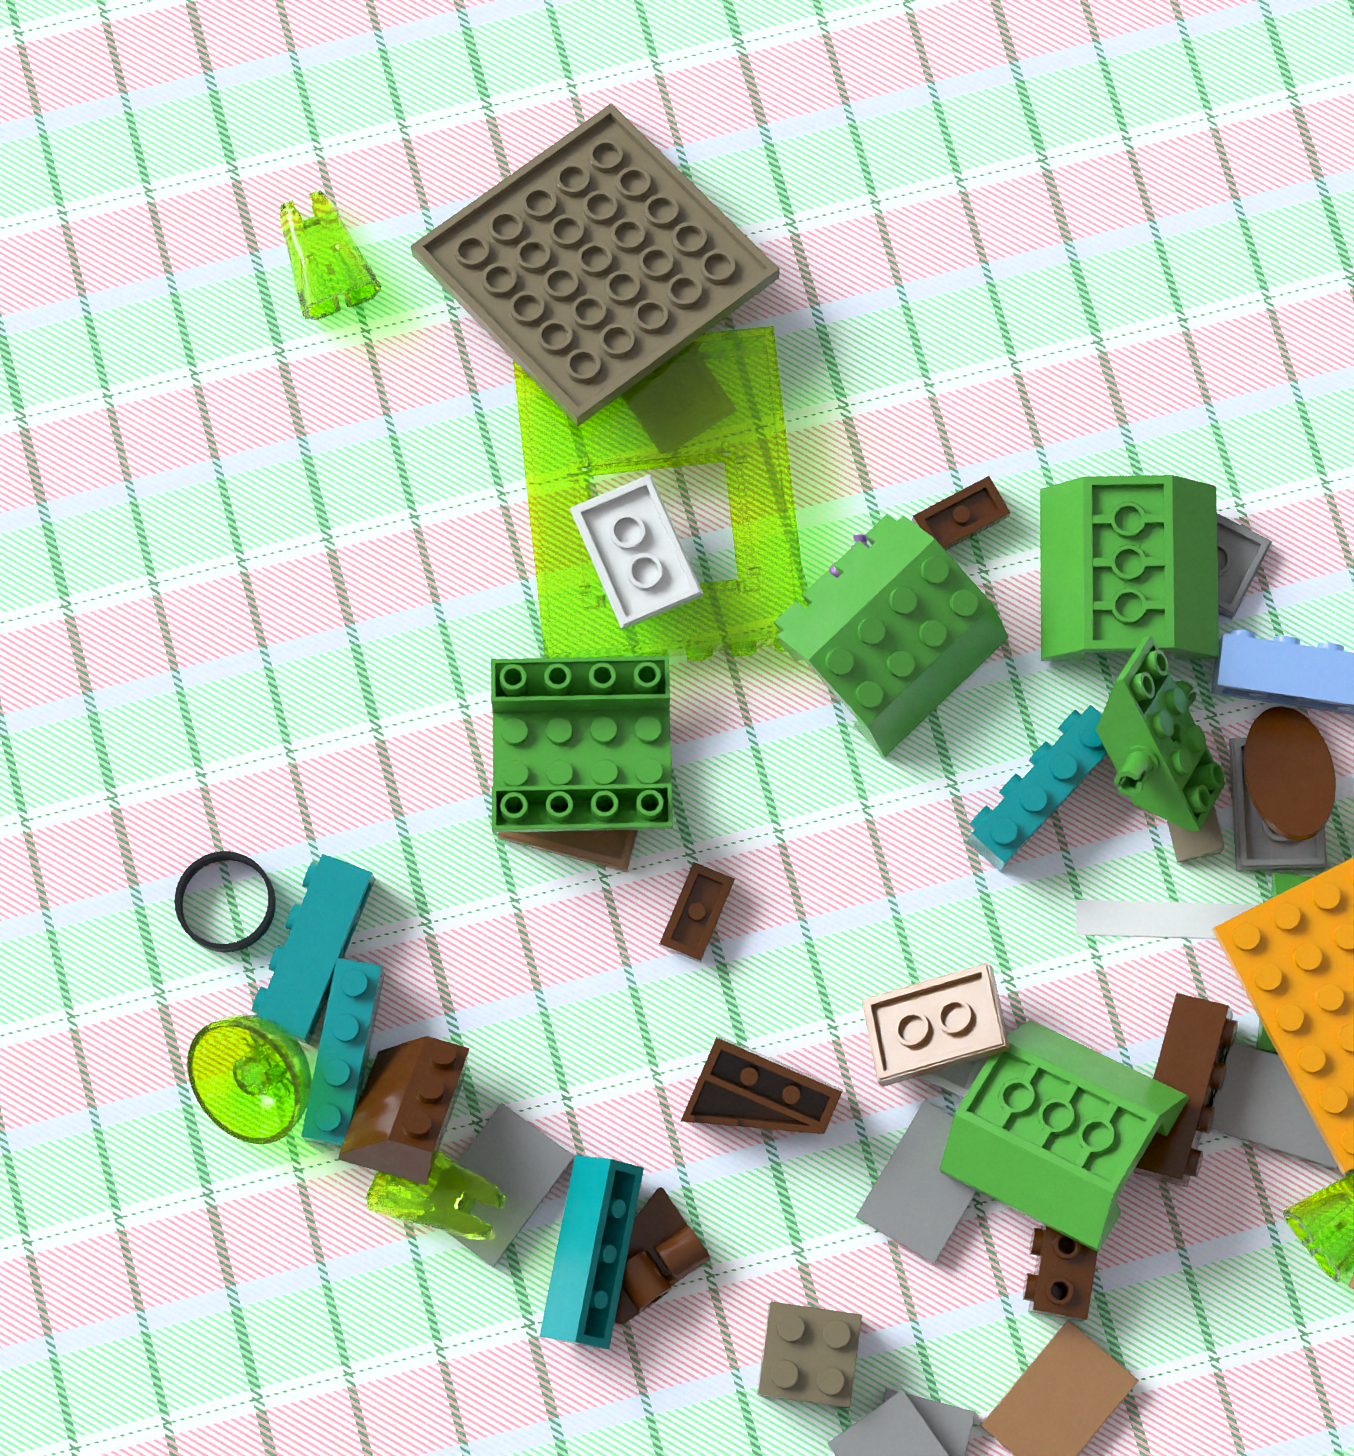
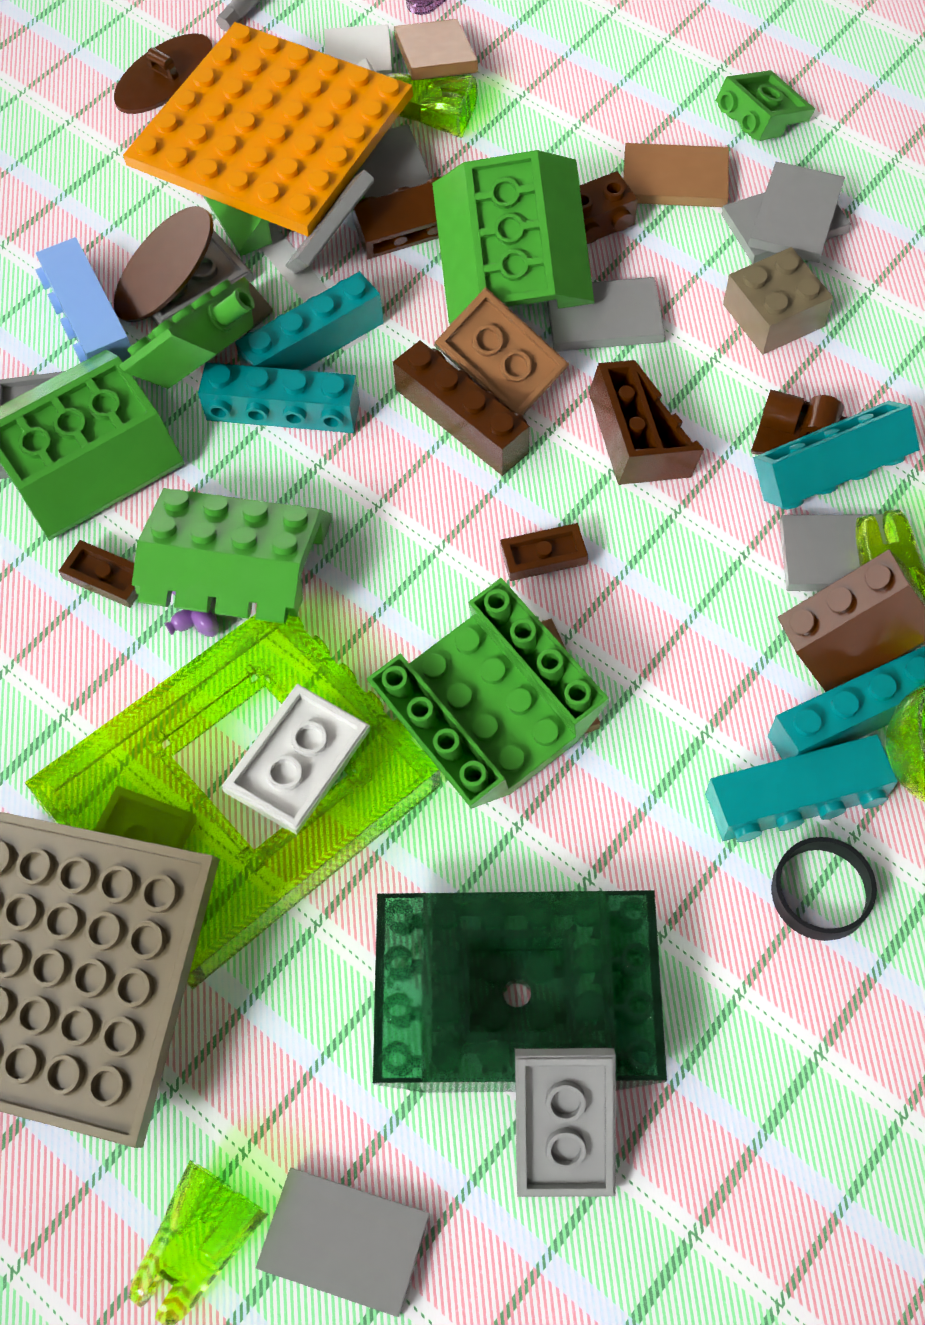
camera: 120 degrees left, 15 degrees down
(201, 557) = (565, 1122): none -> light grey tile
(248, 359) = (343, 1242): none -> light grey tile
(337, 535) = (454, 955): none -> clear green slope
(908, 949) = (462, 407): none -> reddish brown brick
(1108, 872) = (314, 327): none -> teal brick
(1212, 972) = (330, 222): none -> light grey tile

